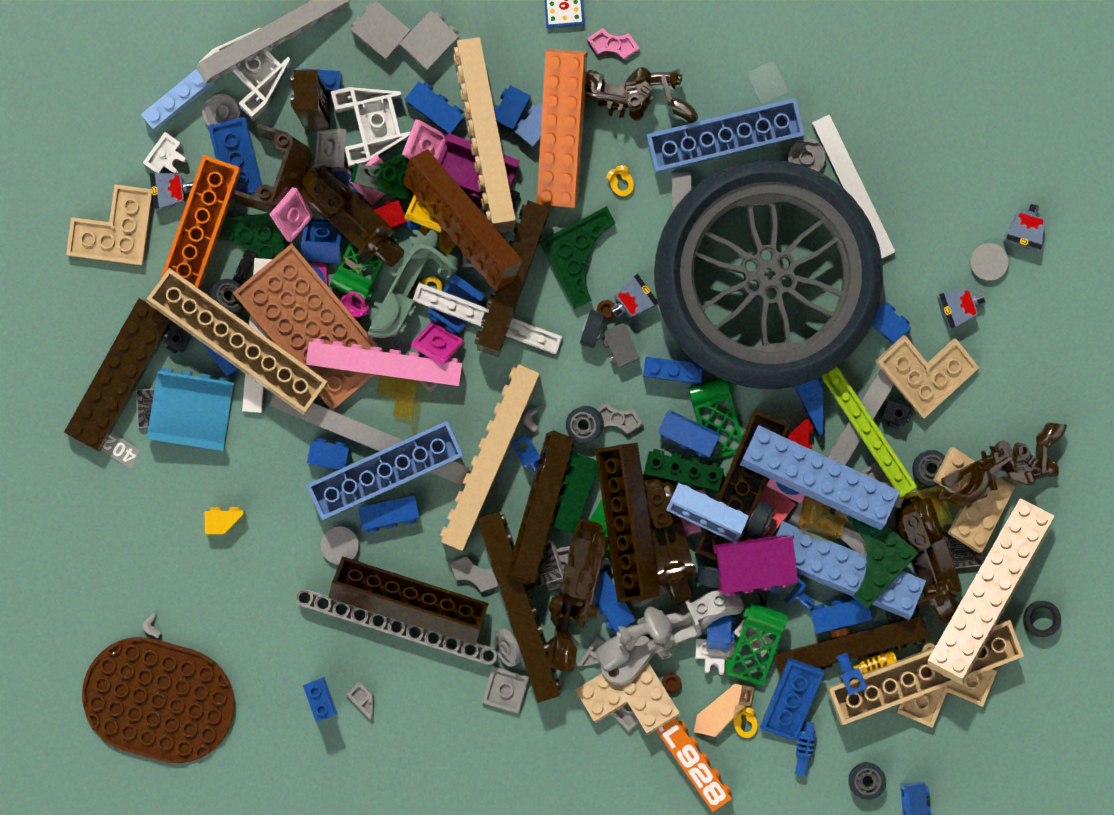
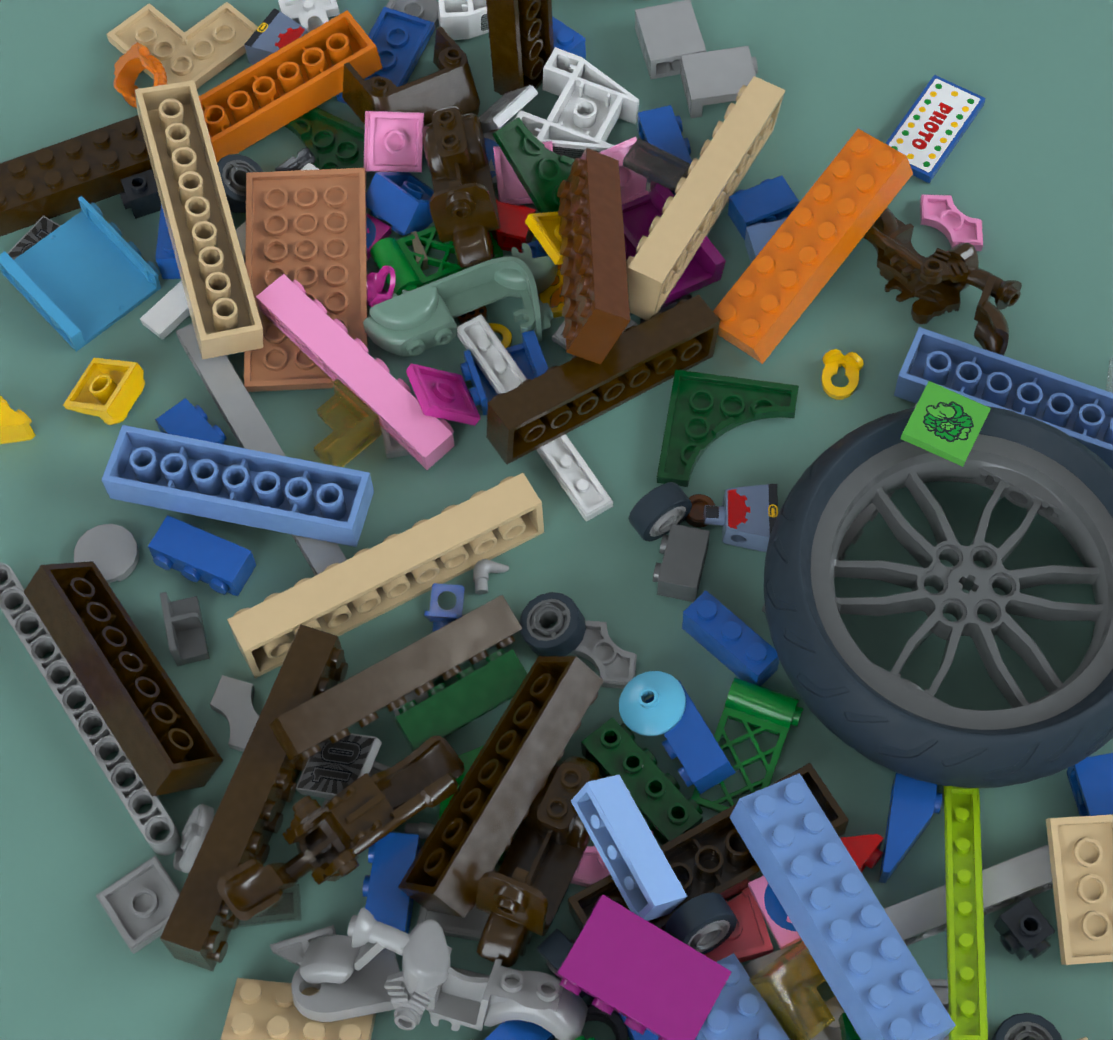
camera: 40 degrees right, 25 degrees down
(100, 271) = (130, 66): none -> orange piece
(262, 463) = (107, 389): none -> yellow slope
(412, 553) = (184, 629): none -> dark grey panel
(448, 135) = (655, 165): none -> clear smoke panel
(670, 426) = (661, 713): none -> medium azure dish
(710, 207) = (945, 423): none -> bright green tile

